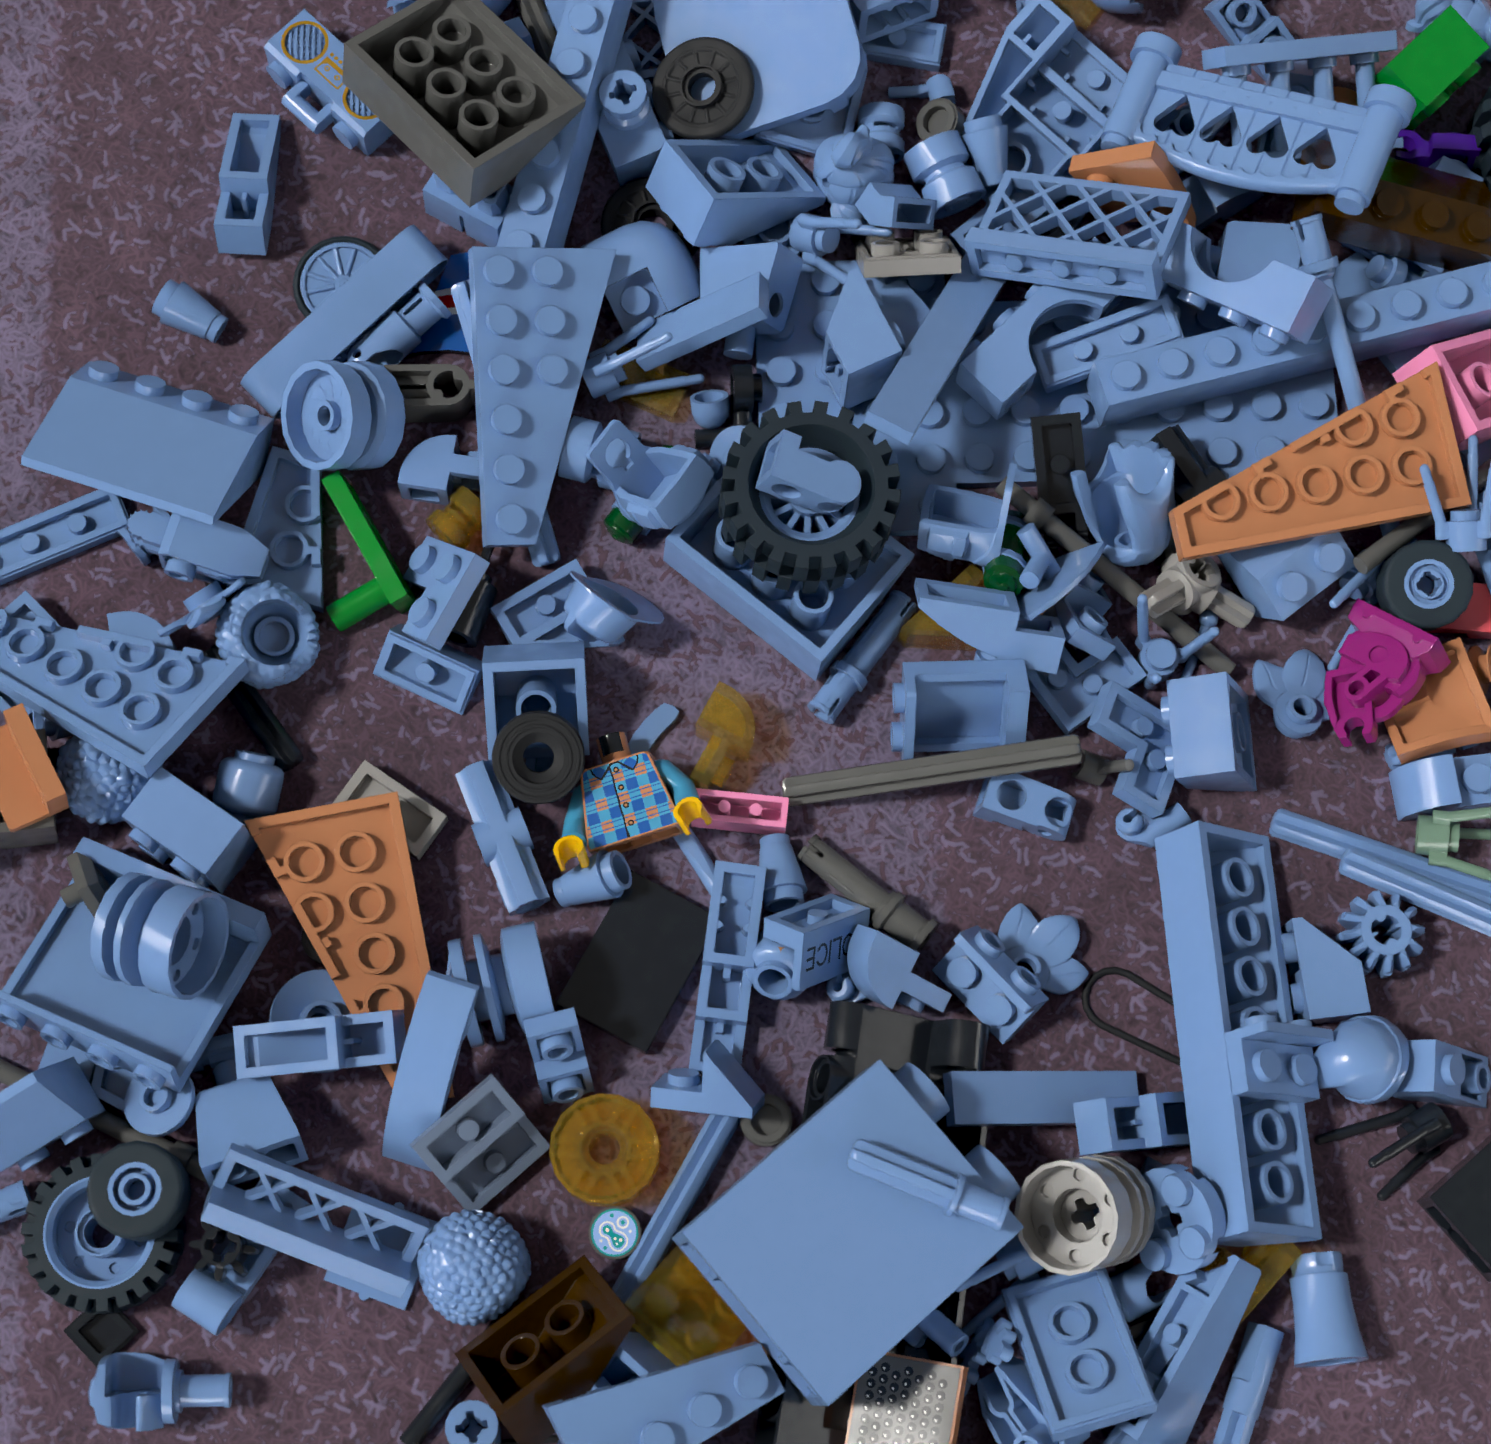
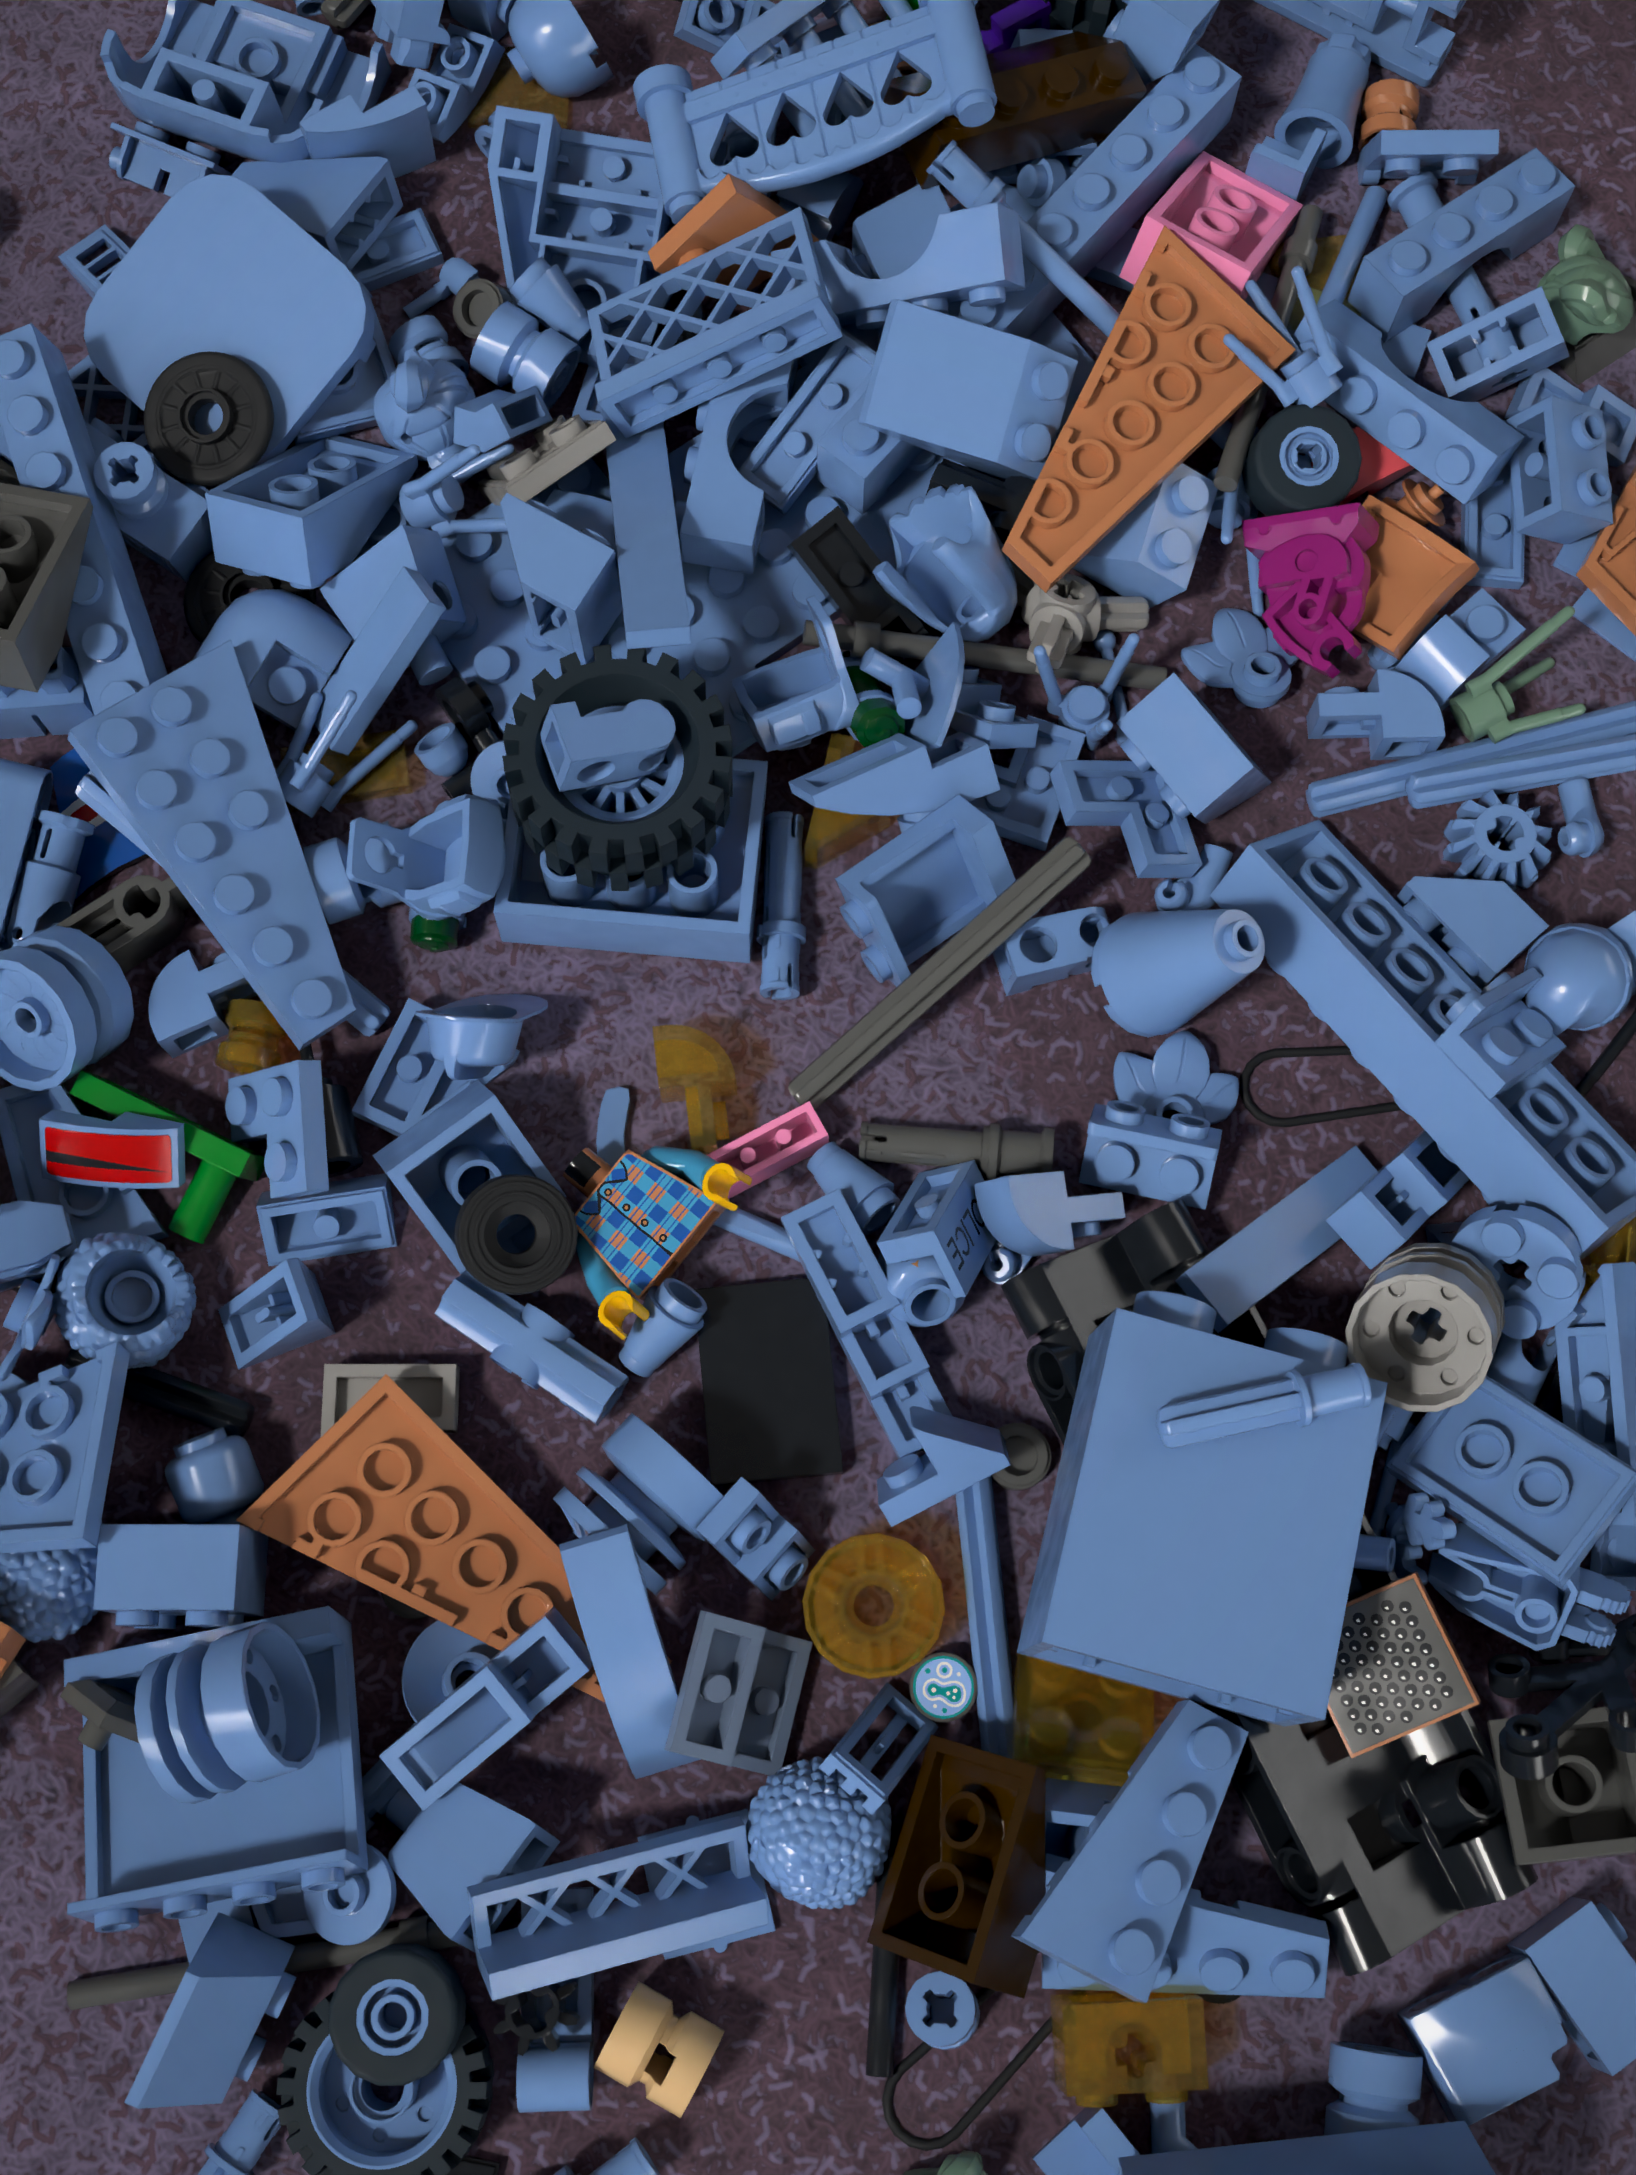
camera: 30 degrees left, 0 degrees up
(273, 1311) = (631, 2047): none -> tan wheel
(325, 539) = (118, 1153): none -> slope
(356, 708) = (276, 1314): none -> medium blue slope
(519, 1244) = (858, 1773): none -> medium blue tile
(1088, 866) = (1172, 964): none -> medium blue cone
(1096, 767) = (1104, 859): dark grey hand -> none
(1218, 390) = (967, 391): none -> medium blue slope
(1372, 799) = (1392, 712): none -> medium blue brick
(1448, 965) = (1583, 829): none -> medium blue arm

